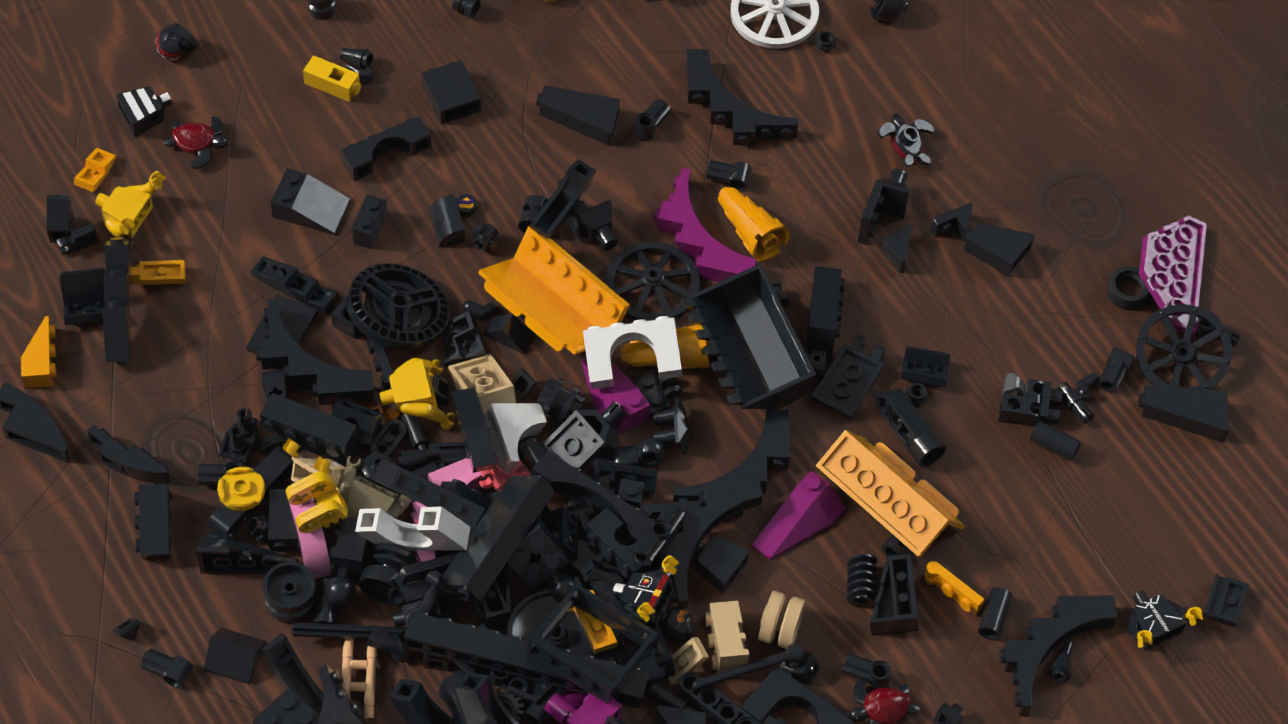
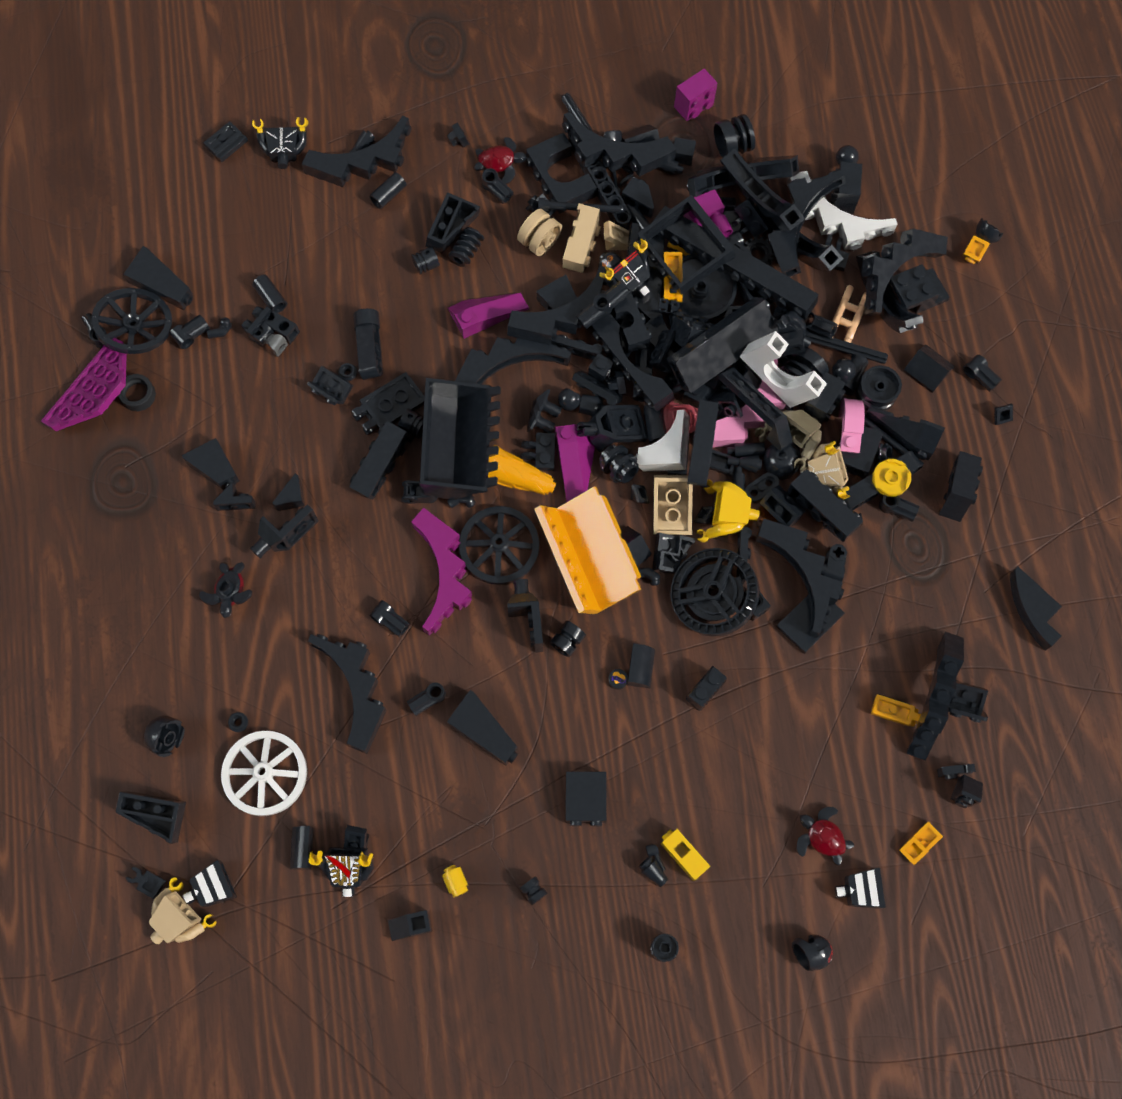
camera: 155 degrees left, 15 degrees up
(37, 358) = (1017, 661): light orange slope -> none
(128, 206) = (907, 783): yellow torso -> none
(130, 462) = (963, 542): black slope -> none
(240, 437) = (874, 533): black connector -> none
(295, 285) = (787, 656): black slope -> none
(308, 202) = (748, 730): slope -> none
(328, 499) = (832, 421): yellow piece -> none
(408, 136) = (638, 763): black arch -> none
(485, 237) = (616, 635): black gear -> none
(563, 200) = (552, 614): black arch -> none
(658, 334) = (526, 468): white arch -> none
(753, 224) = (396, 557): light orange cone -> none
(887, 490) = (410, 289): light orange piece -> none
(953, 587) = (406, 218): light orange plate -> none
(1076, 403) = (236, 318): black pin -> none

